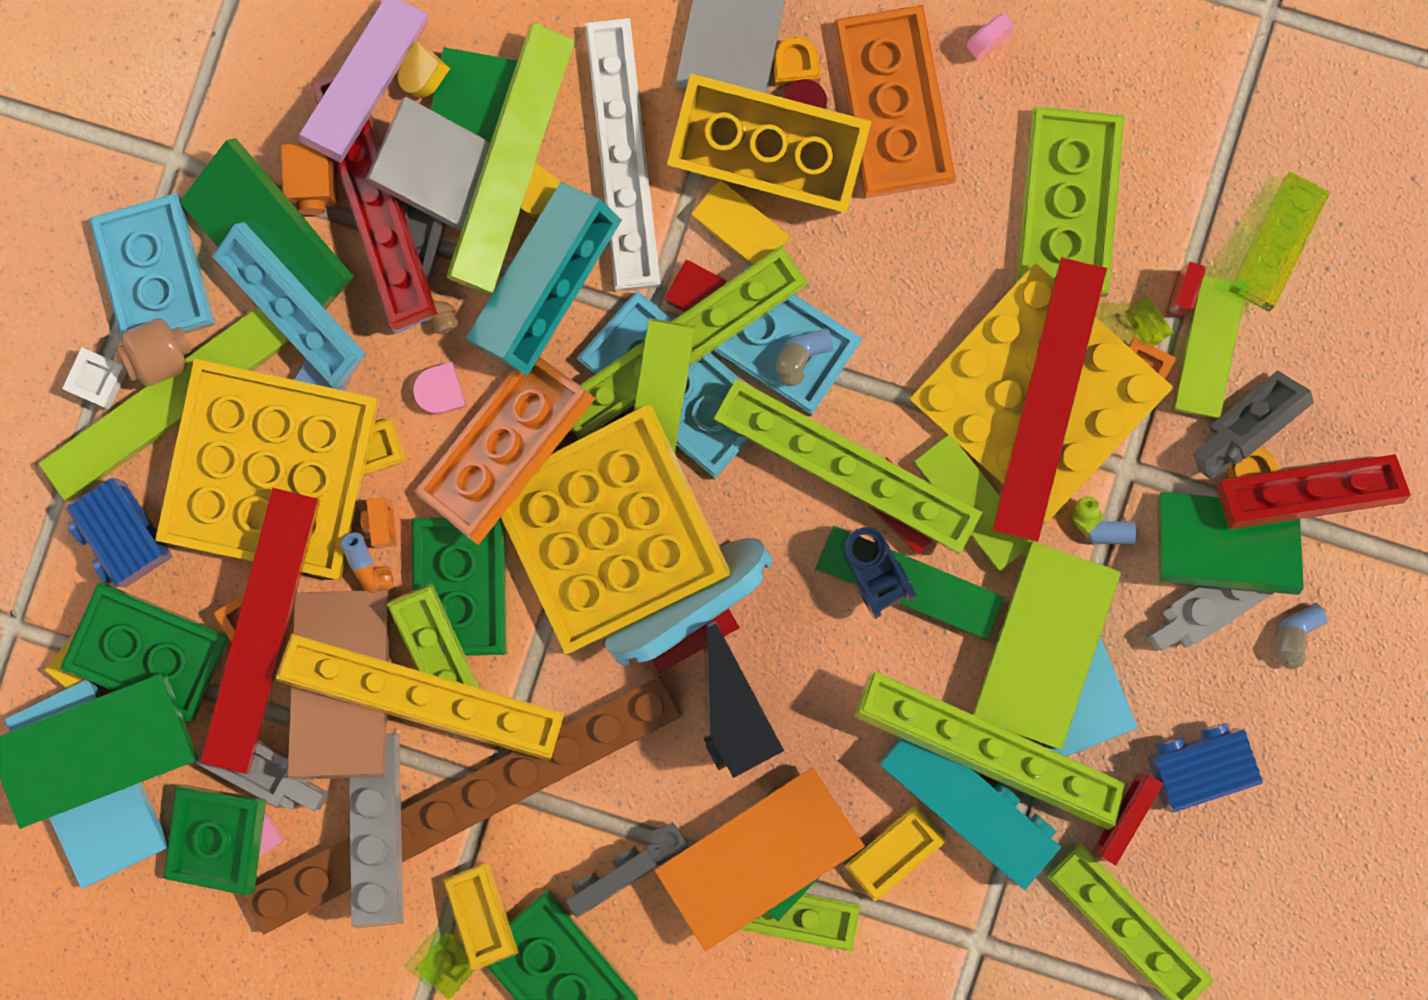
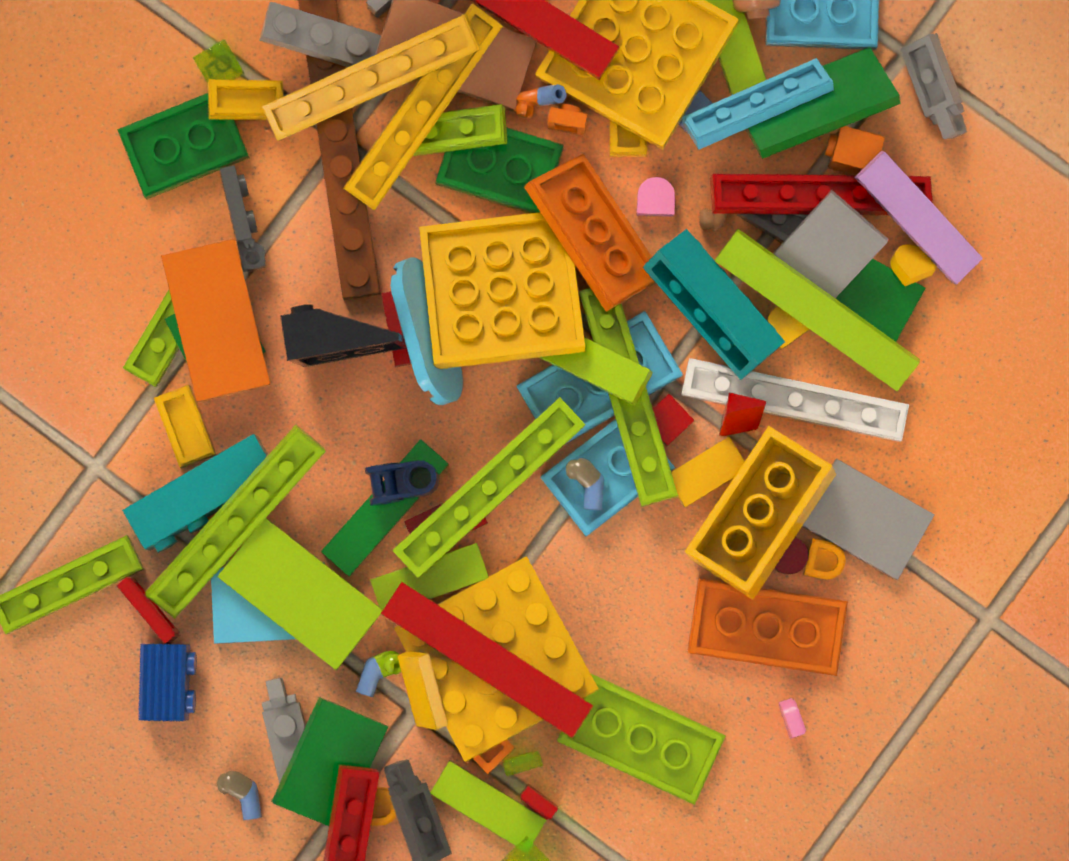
camera: 105 degrees right, 0 degrees up
(200, 111) = (935, 85): none -> light grey hinge
(405, 769) = (372, 77): none -> yellow tile
(661, 207) = (741, 414): none -> red slope
(1107, 464) = (422, 690): none -> yellow tile

